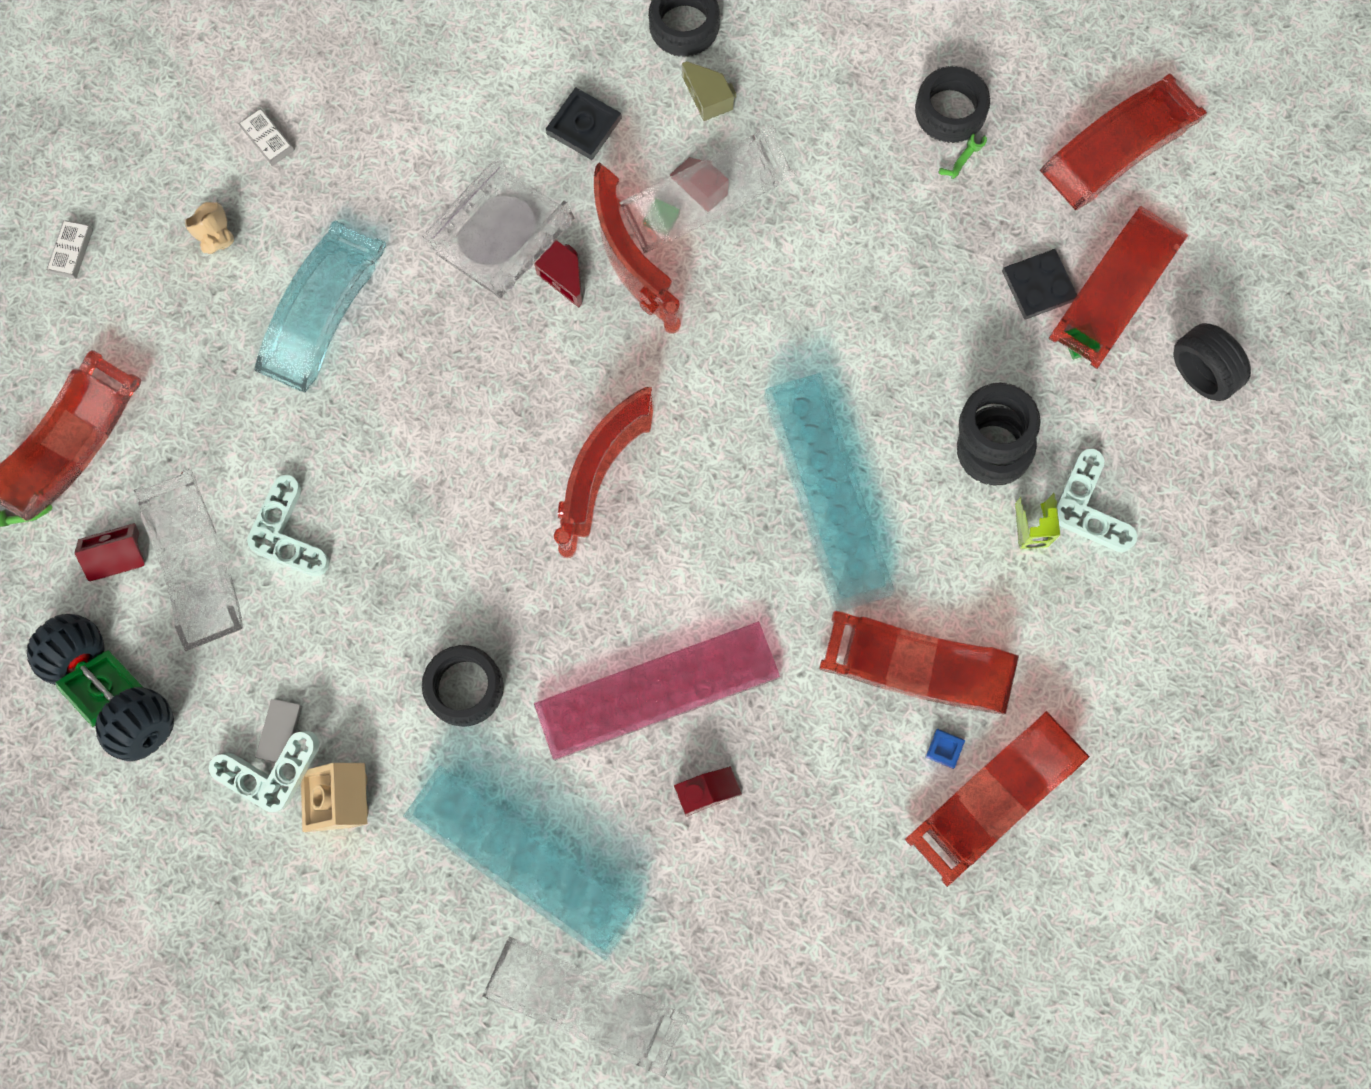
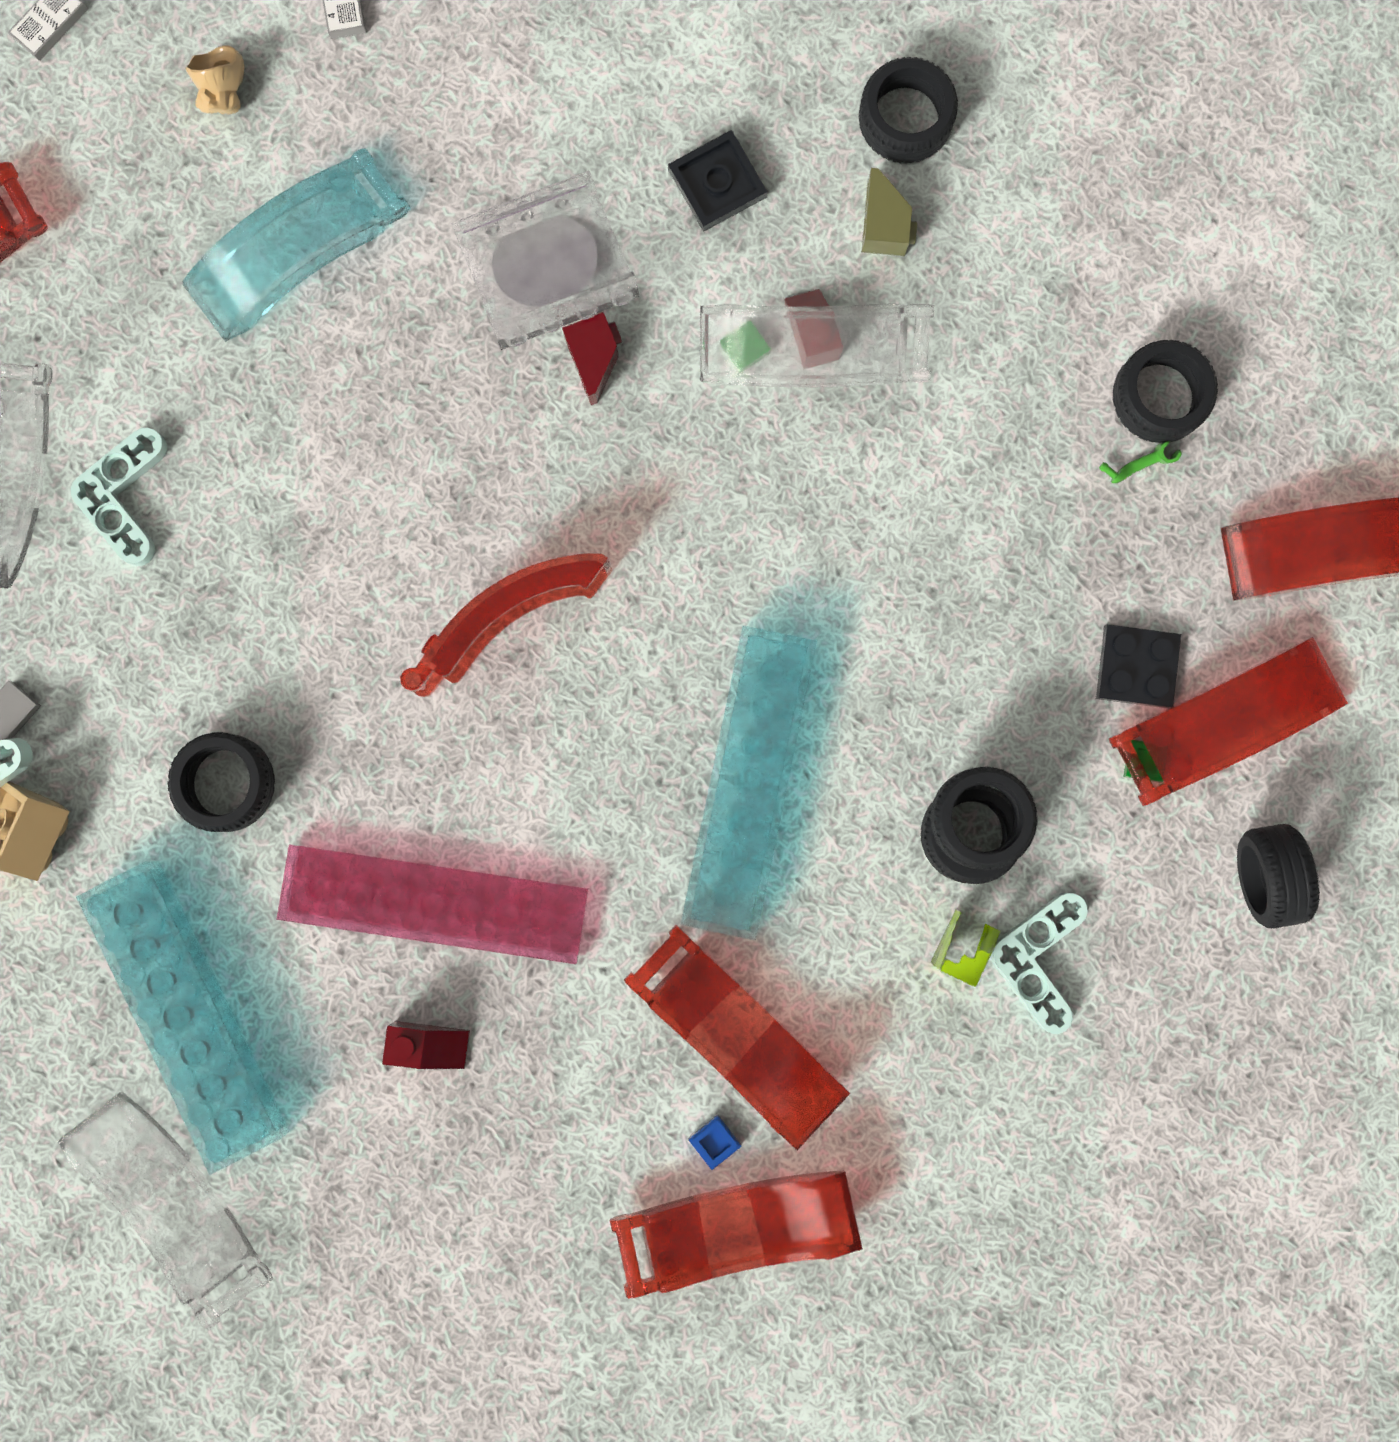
camera: 25 degrees right, 10 degrees up
(634, 270) = (677, 319): clear red windscreen -> none

